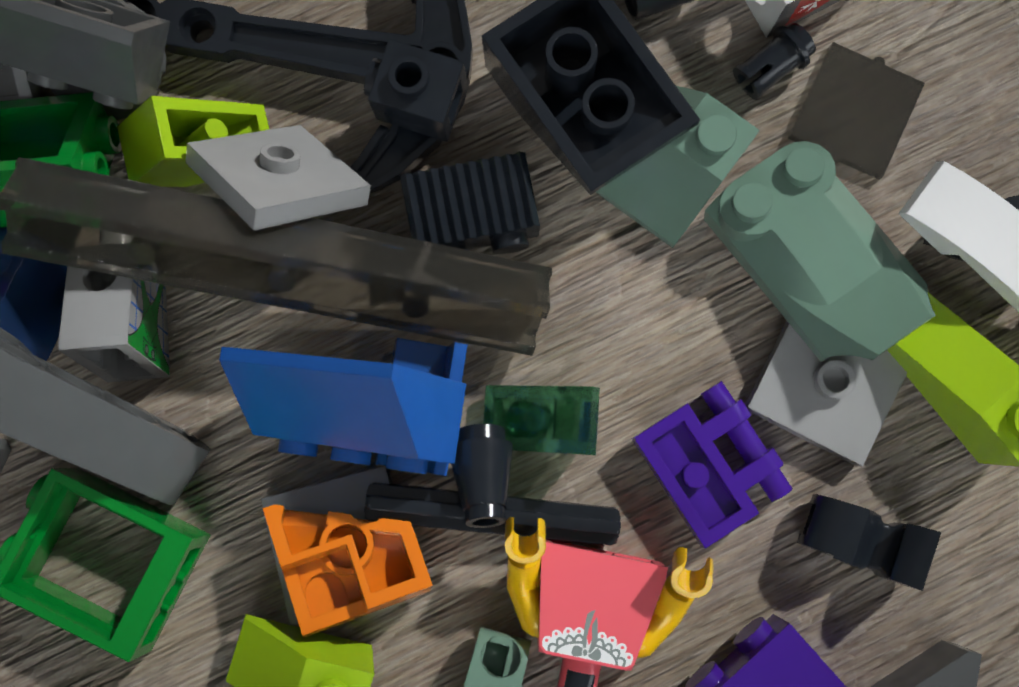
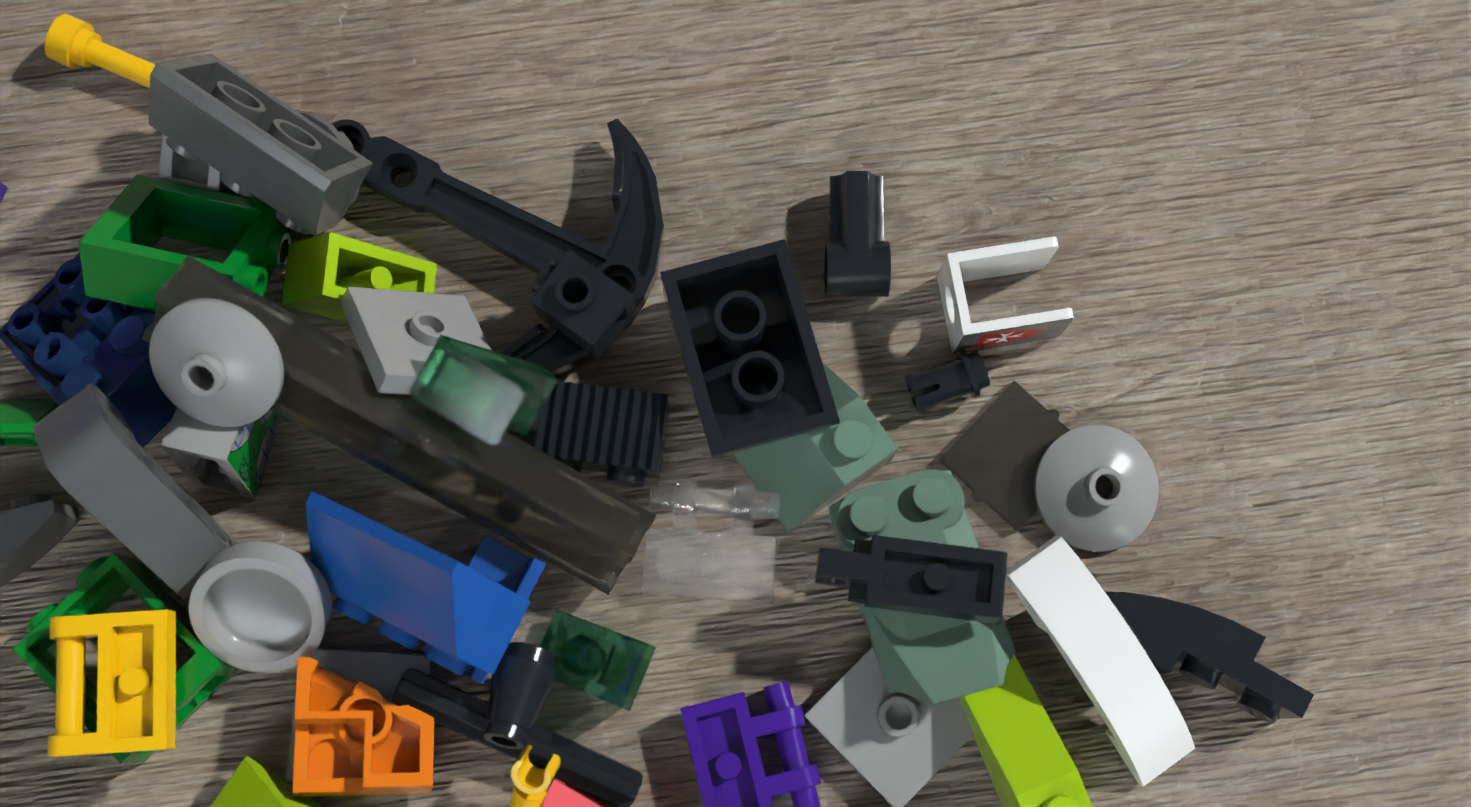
camera: 15 degrees right, 5 degrees down
(96, 230) = (232, 347): none -> light grey dish
(112, 583) = (132, 683): none -> yellow plate
(210, 472) = (260, 606): none -> light grey piece
(350, 196) = (482, 388): none -> clear green slope
(613, 297) = (707, 563): none -> clear plate
(824, 242) = (919, 577): none -> black hinge
(918, 120) = (1068, 495): none -> light grey dish

